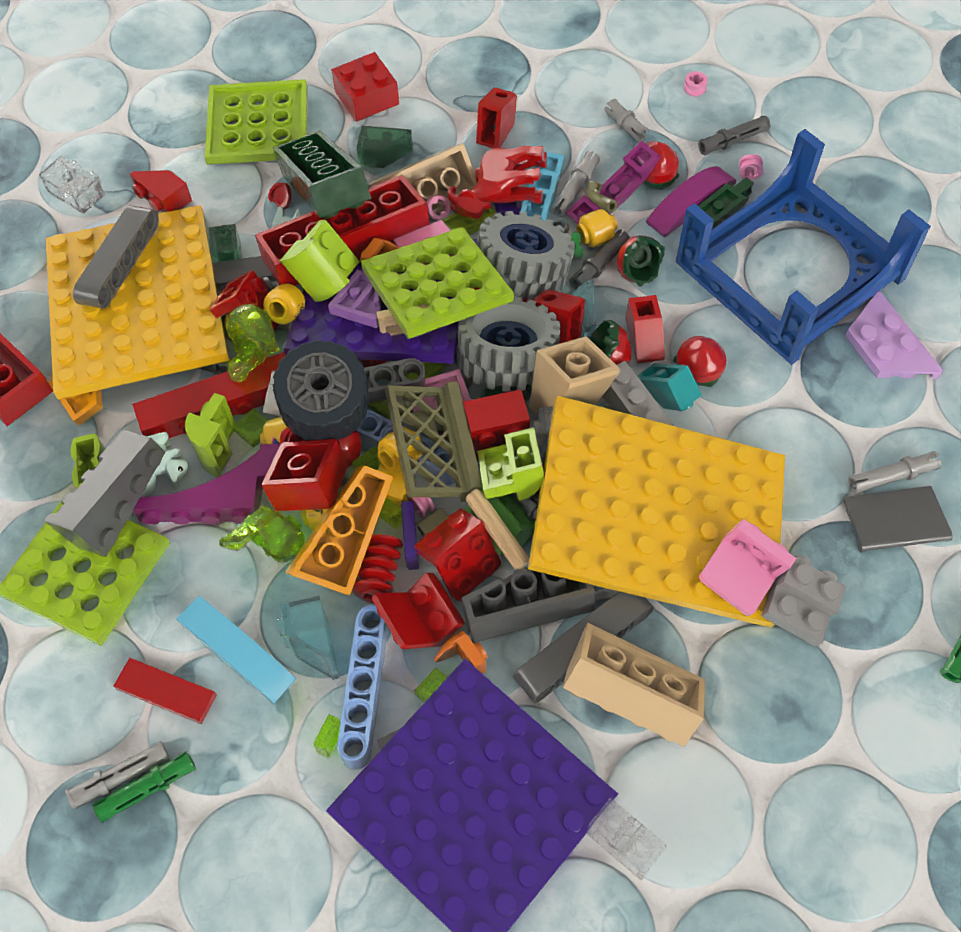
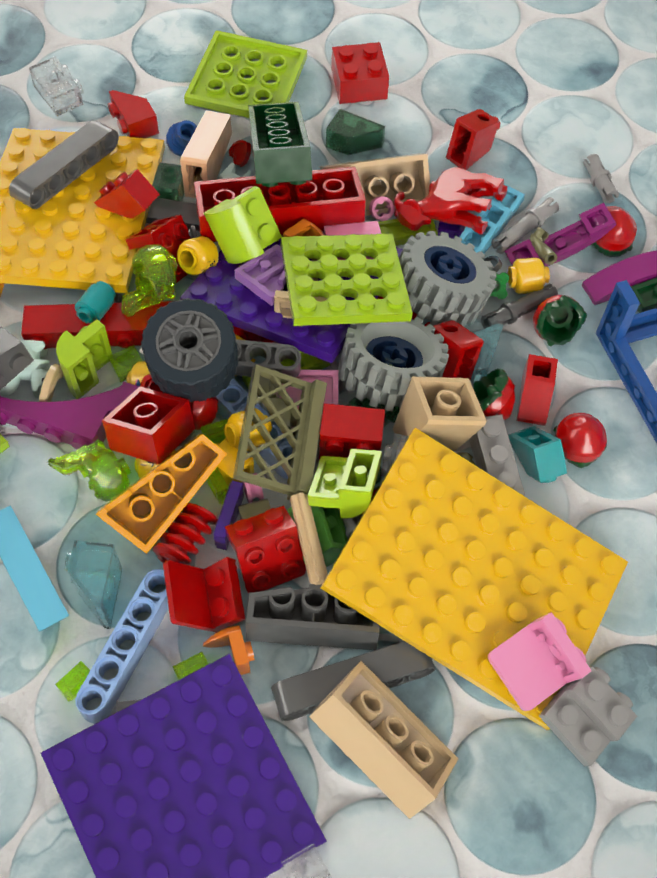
camera: 15 degrees right, 0 degrees up
(188, 467) = (49, 383): none -> tan piece
(193, 267) = (128, 195): none -> red slope
(203, 378) = (95, 302): none -> teal brick
(220, 198) = (179, 136): none -> blue piece
(248, 204) = (205, 150): none -> light nougat slope

